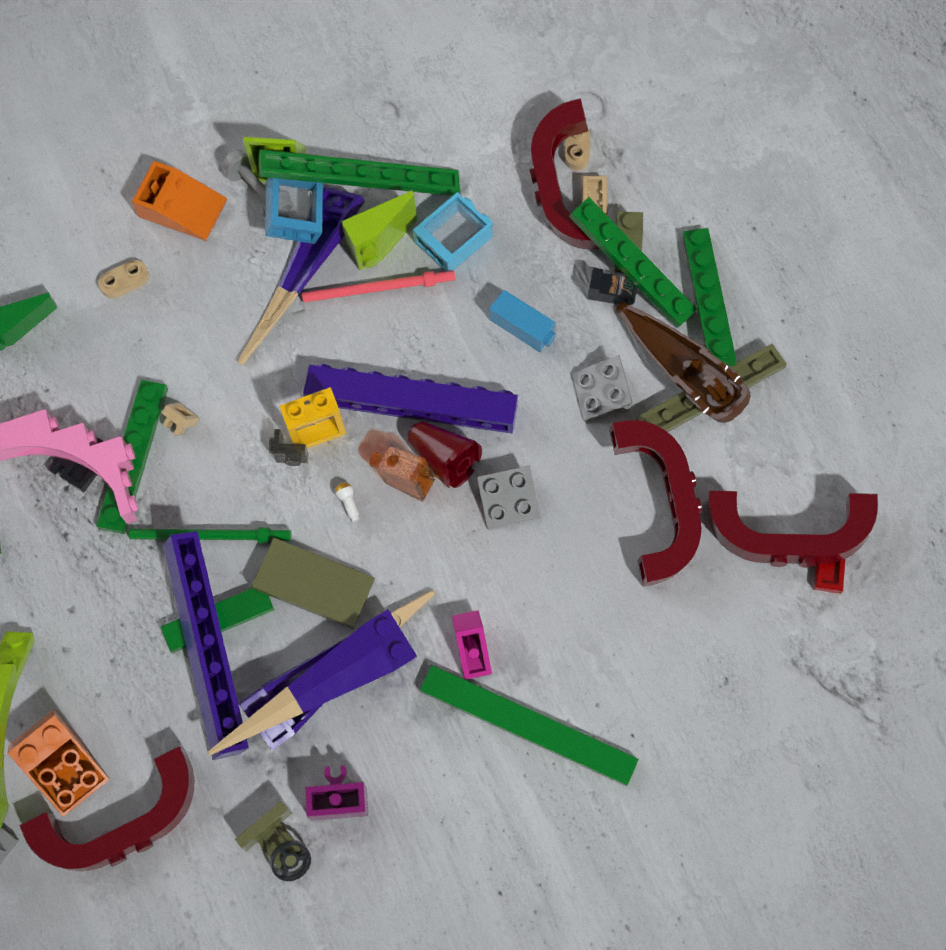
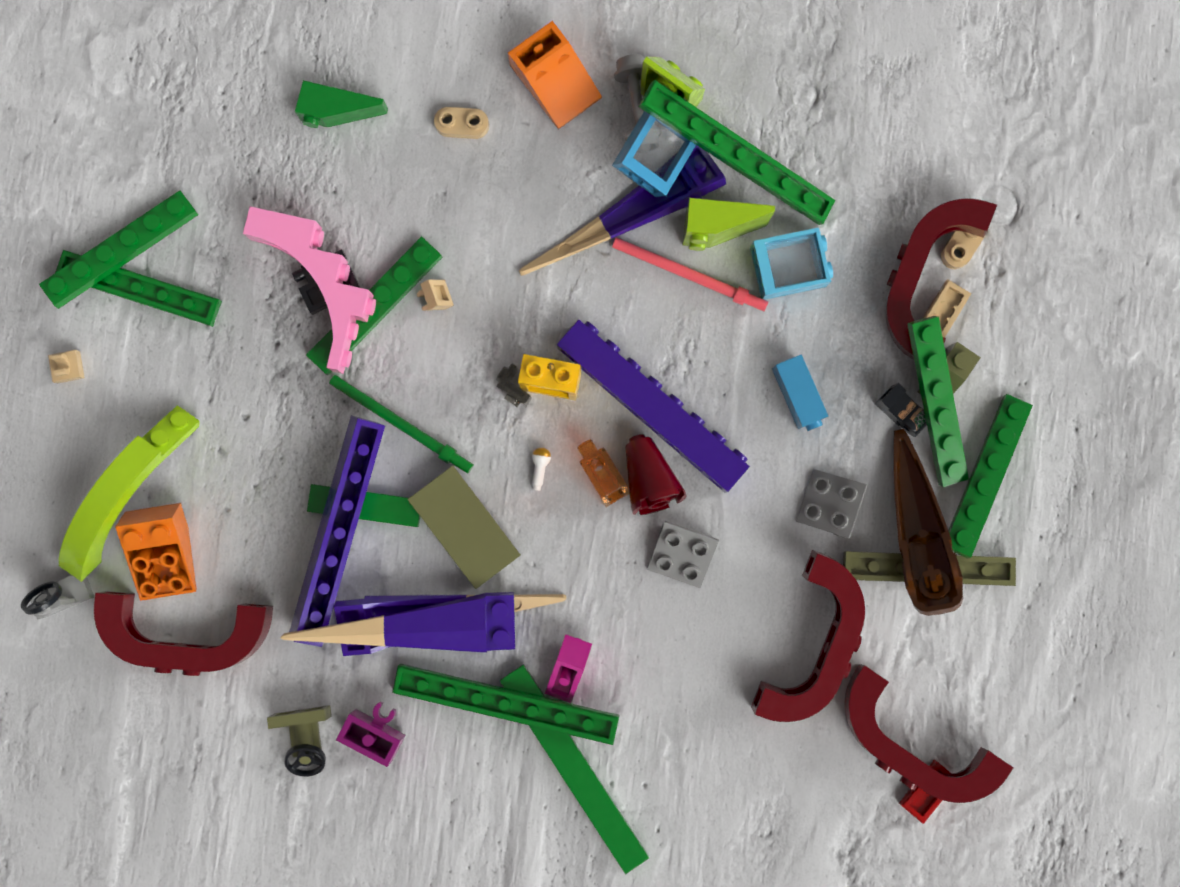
camera: 30 degrees right, 15 degrees up
(435, 704) = (506, 704): none -> green tile

